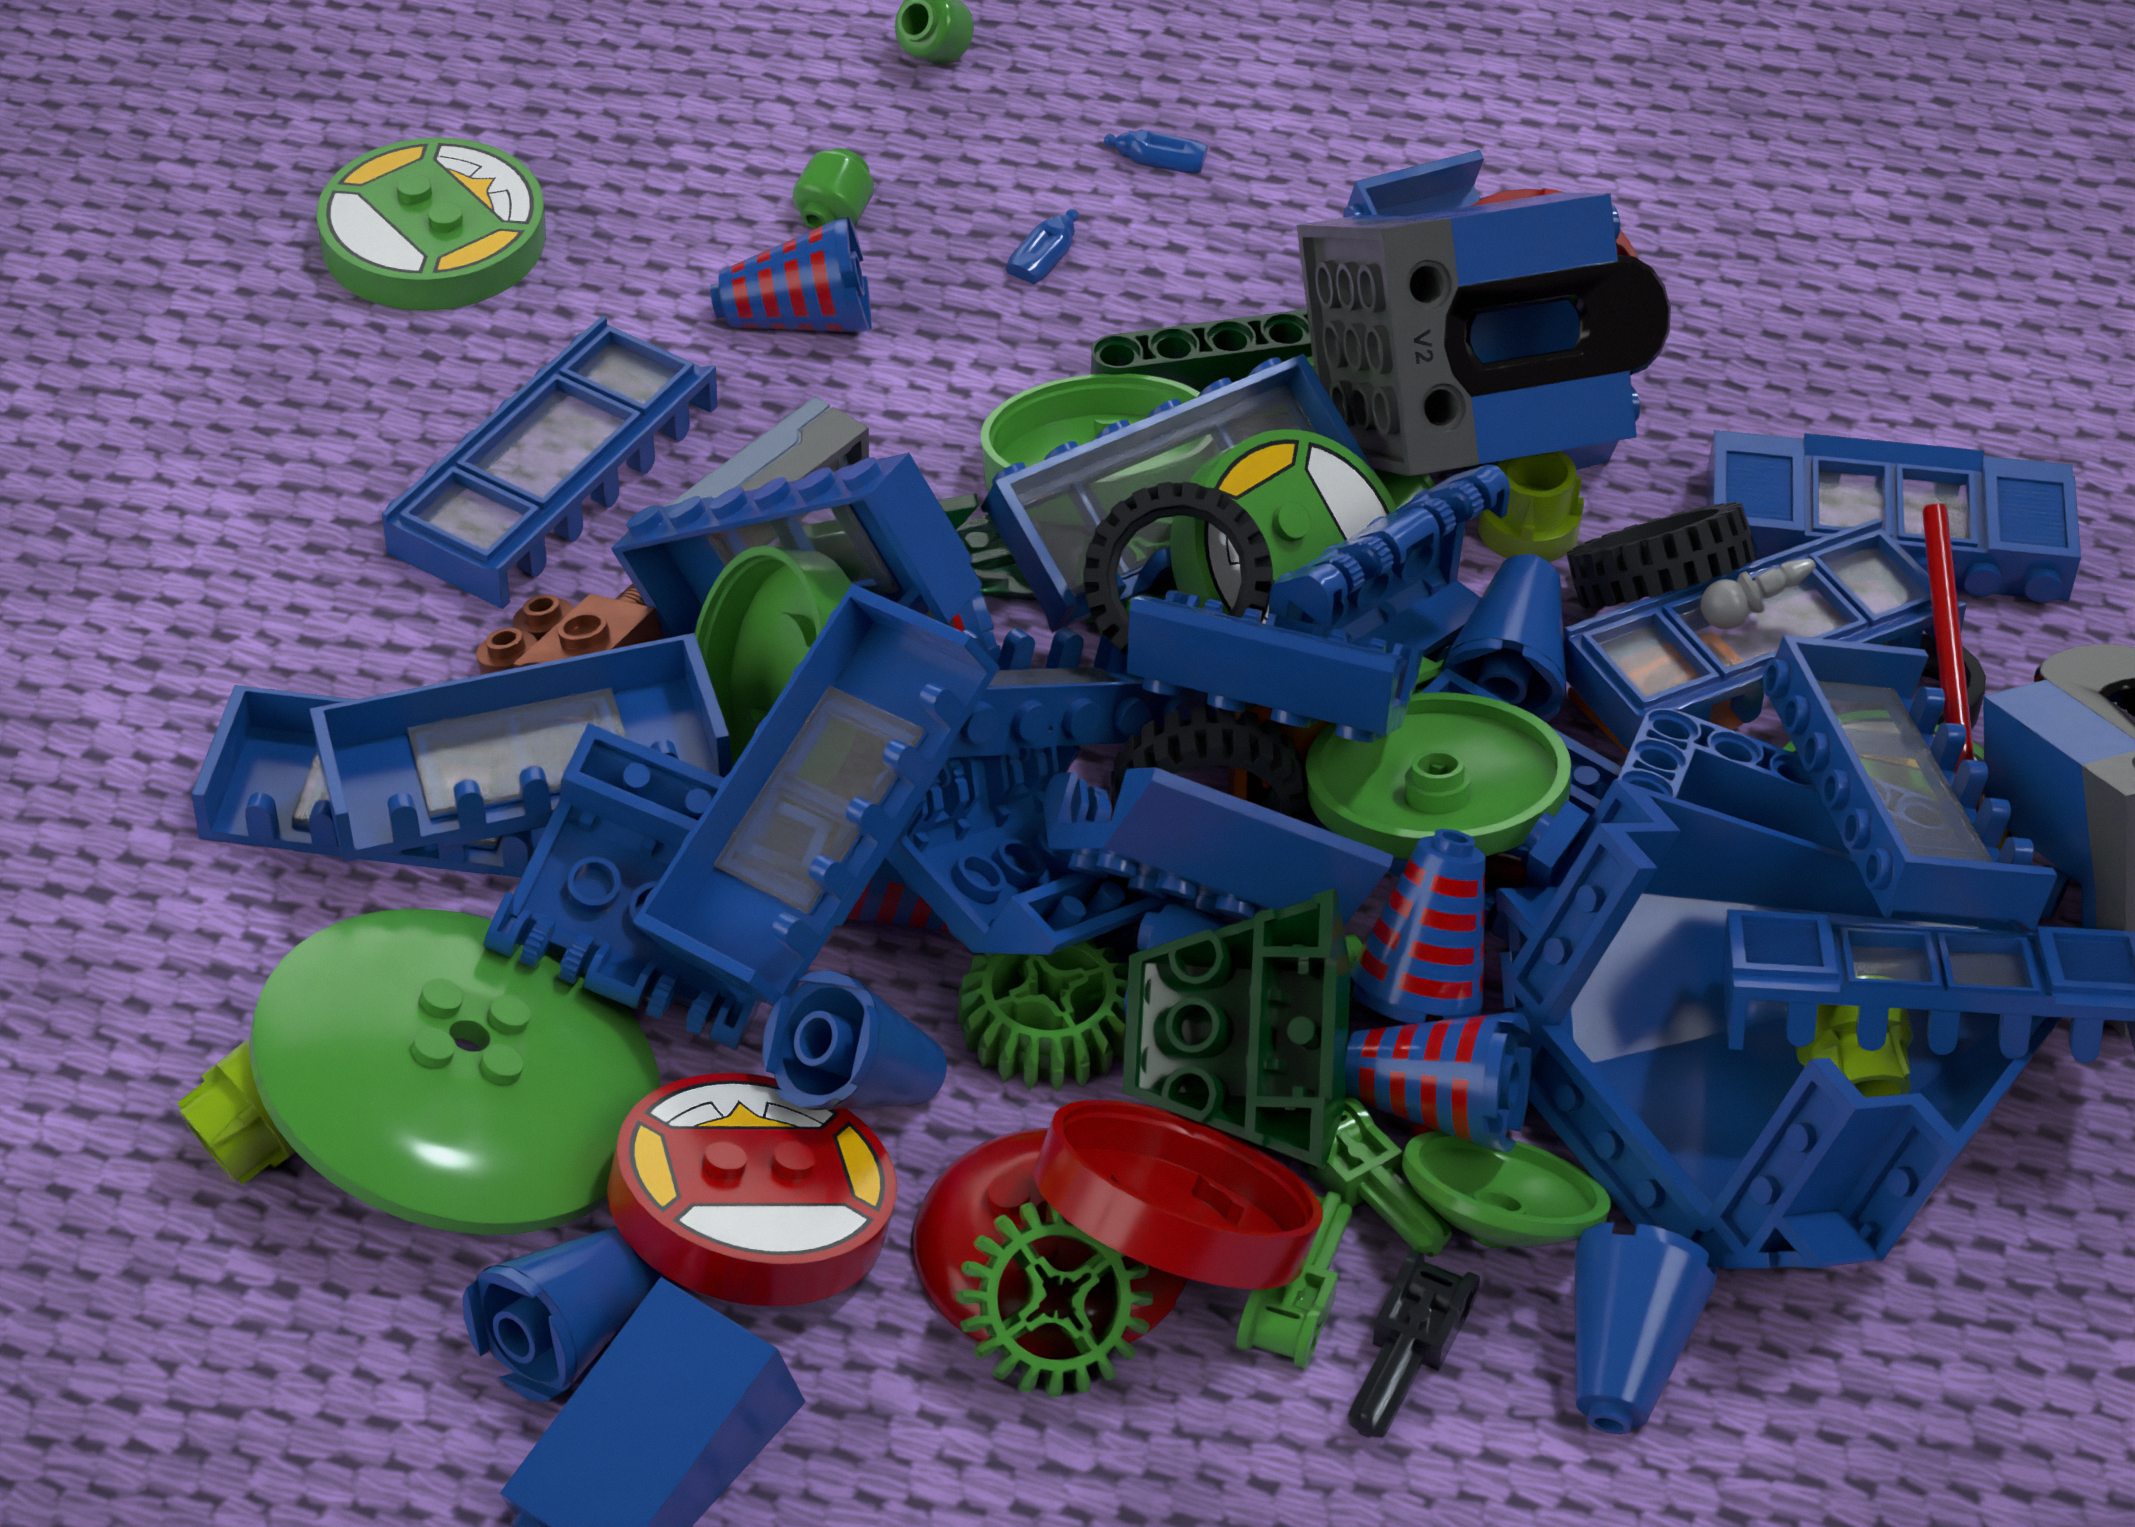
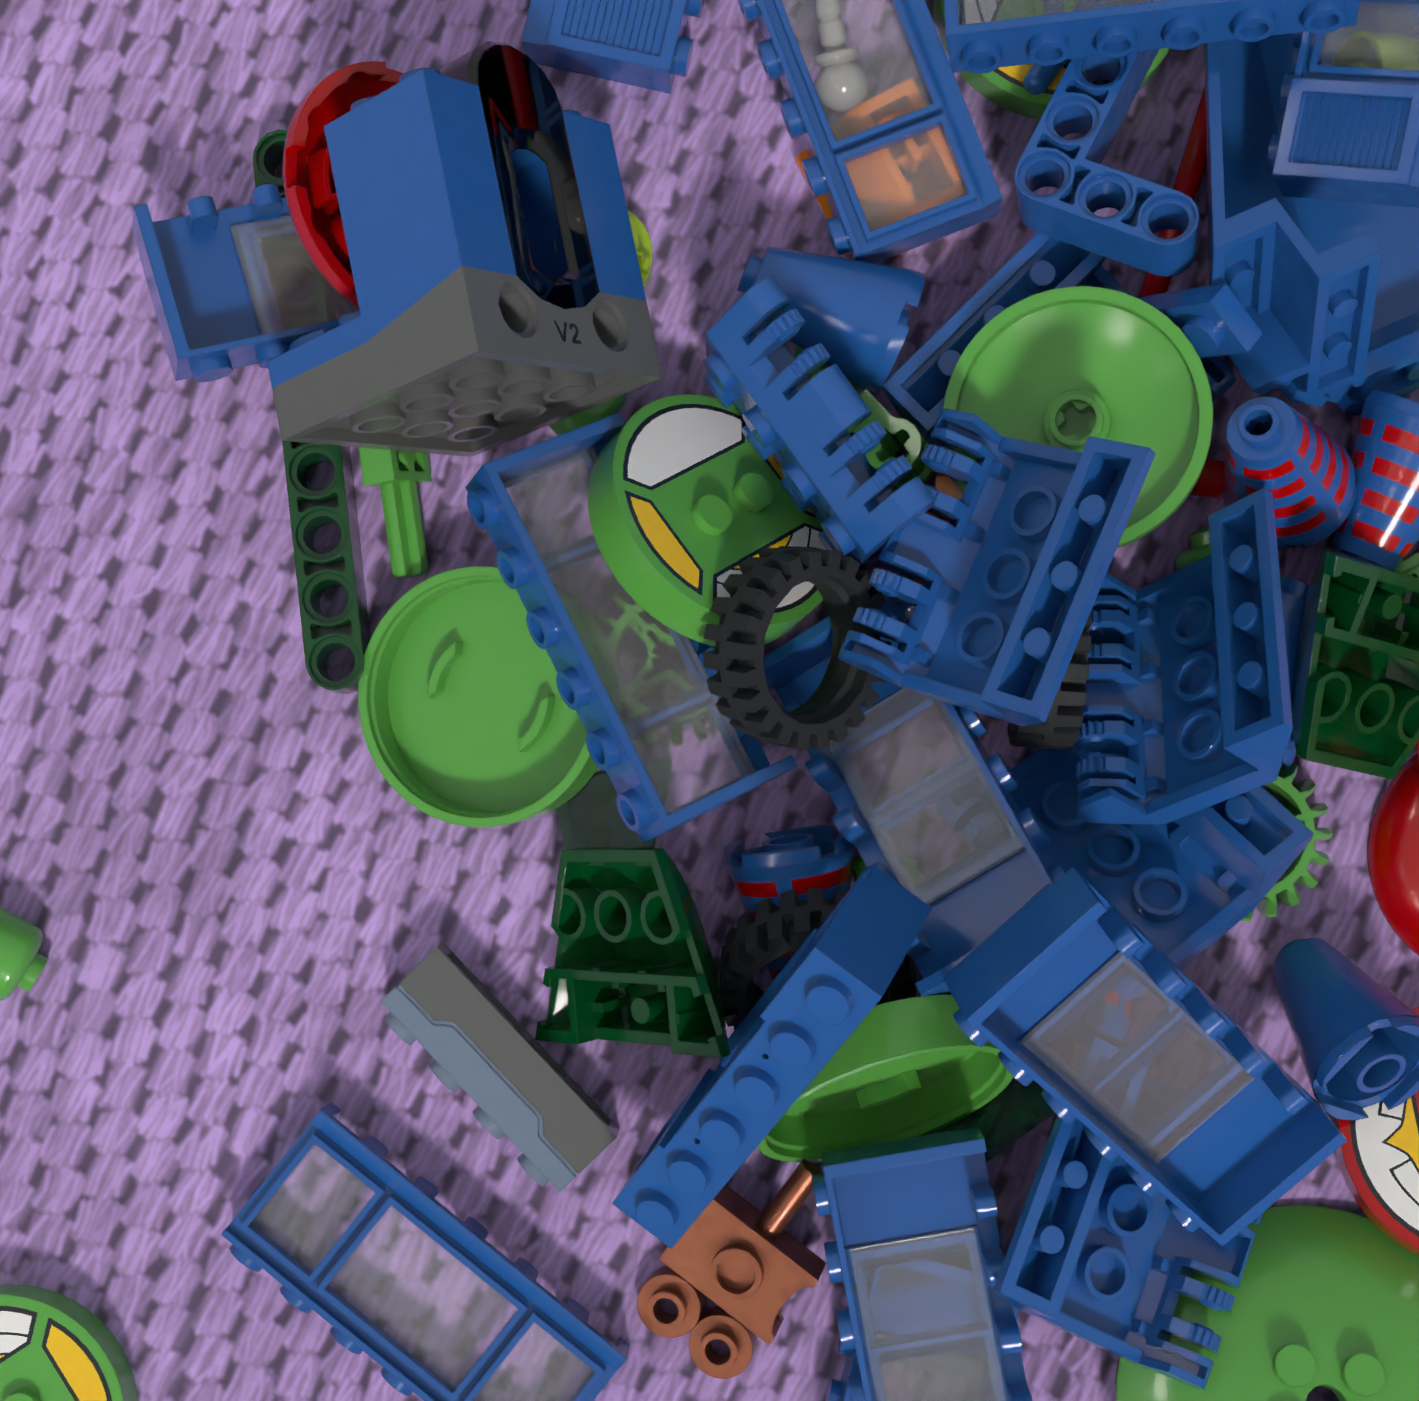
camera: 80 degrees left, 40 degrees up
(799, 285) = (174, 1002): blue cone -> none
(1043, 248) = (106, 719): blue piece -> none
(1661, 555) = (786, 125): black tyre -> none

